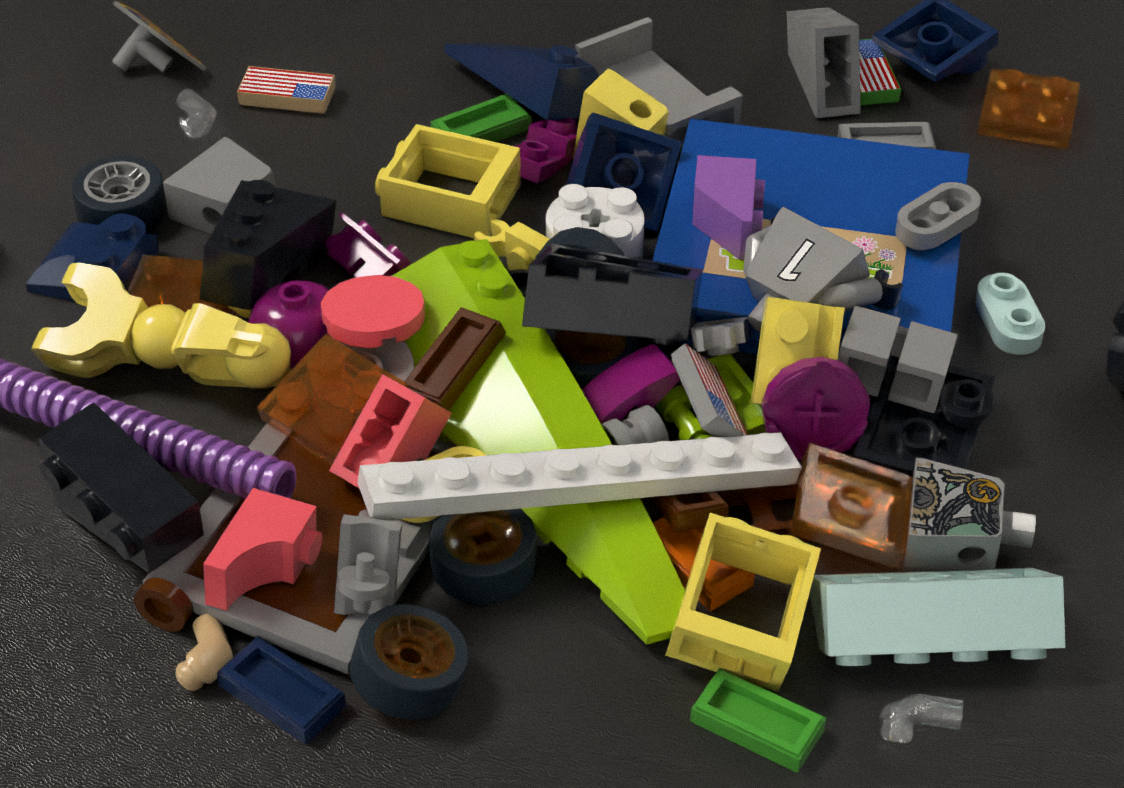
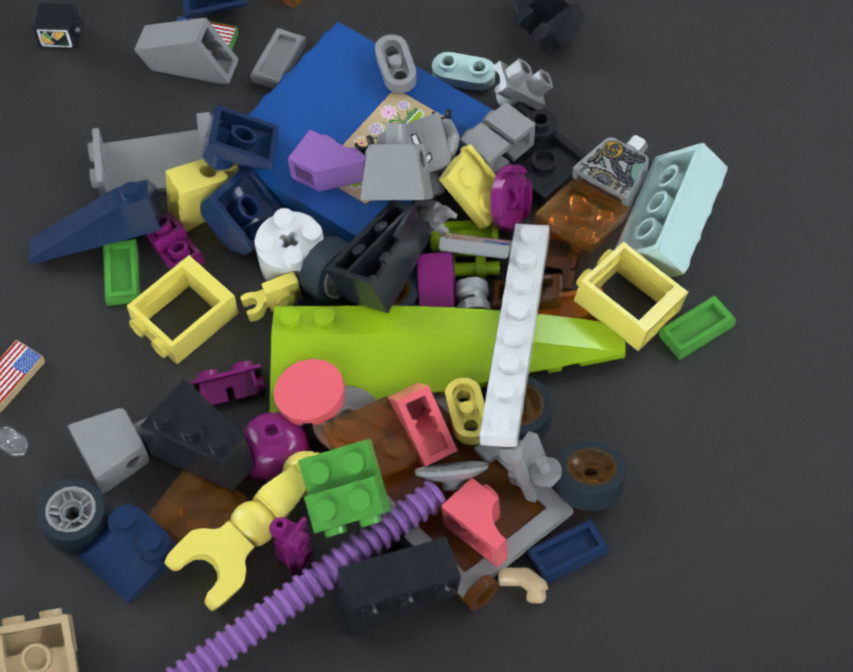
camera: 60 degrees left, 15 degrees up
(140, 371) = (292, 543): none -> magenta hinge
(225, 377) = (344, 488): none -> bright green plate
(318, 484) = (452, 474): none -> light grey dish
(455, 357) = (376, 363): reddish brown tile -> none
(700, 111) = (239, 141): none -> dark blue slope
(740, 242) = (396, 169): none -> light grey torso
(919, 709) = (728, 256): clear arm -> none
(1019, 362) = (520, 84): none -> light grey hips

